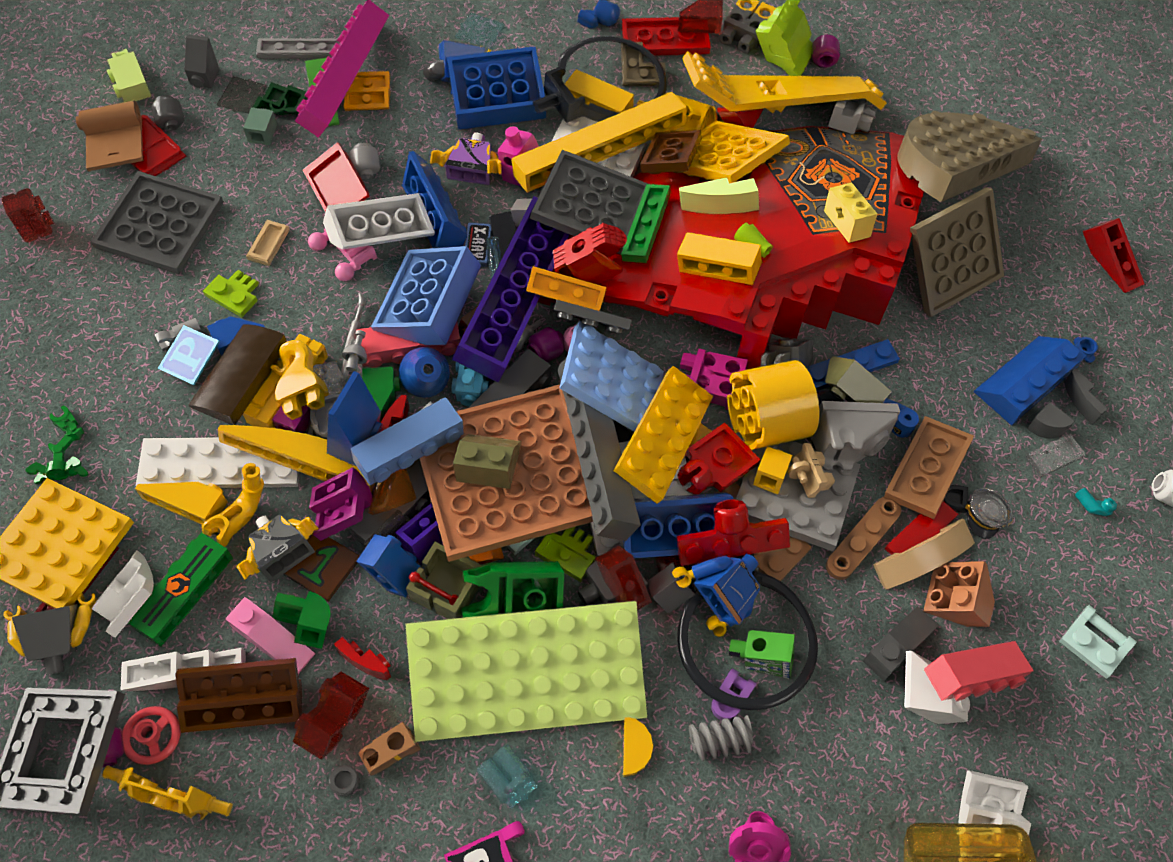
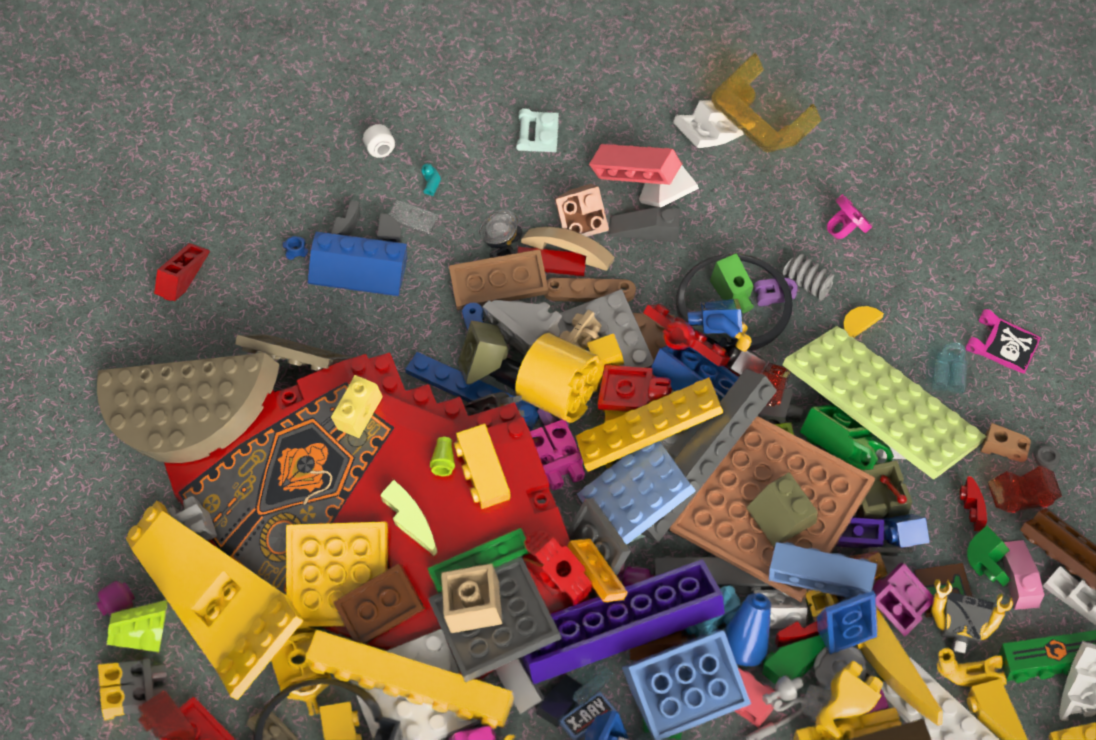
camera: 130 degrees left, 5 degrees down
(613, 181) = (471, 598): none -> tan brick

